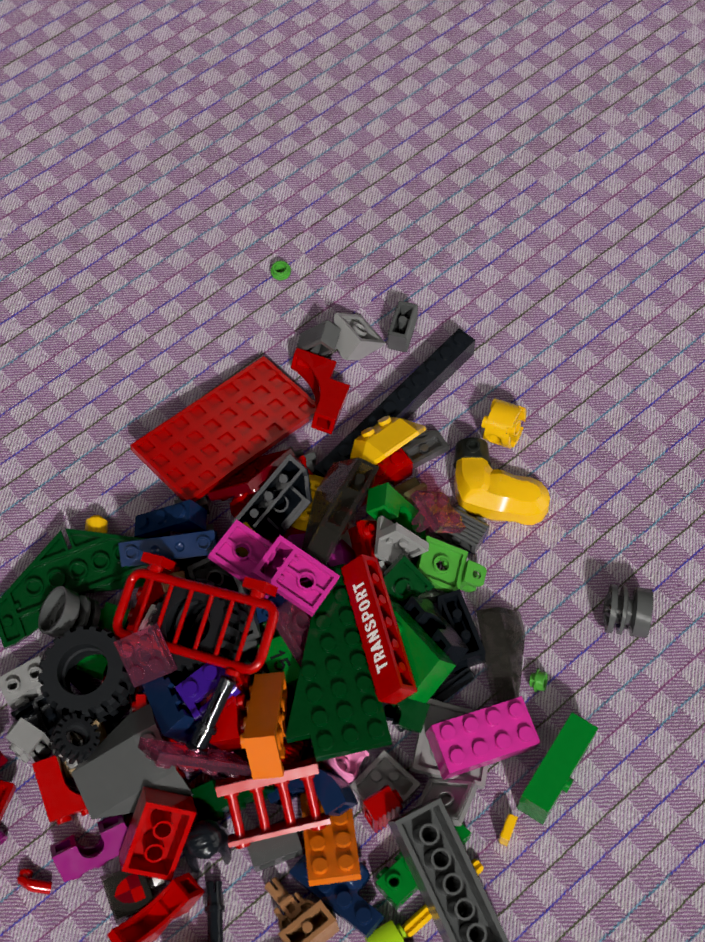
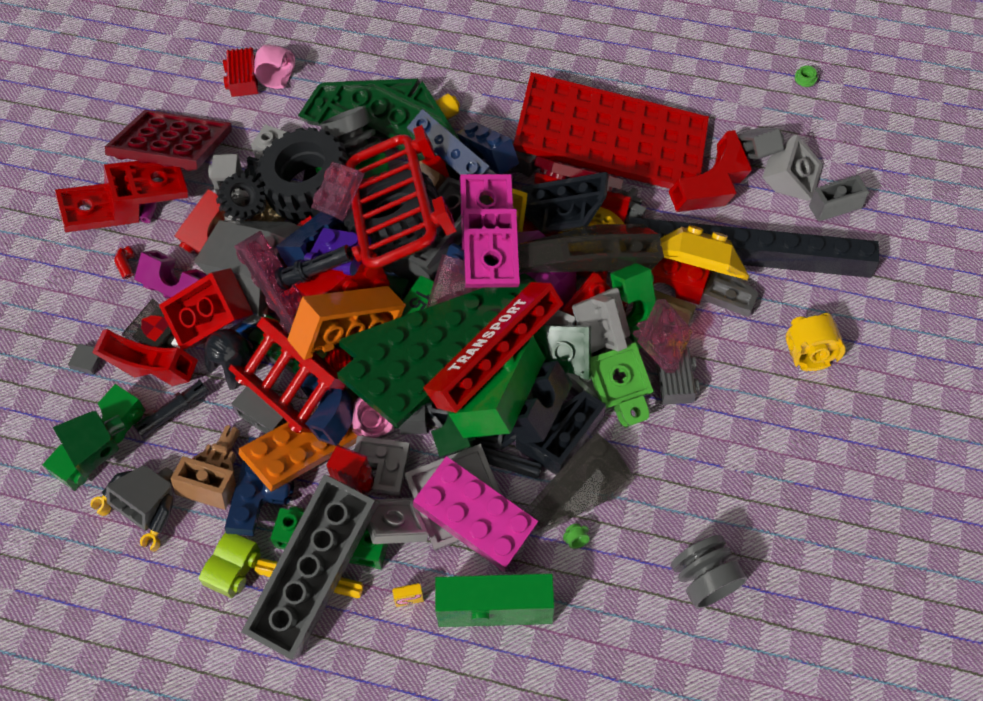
camera: 55 degrees right, 0 degrees up
(495, 492) = (738, 381): yellow piece -> none

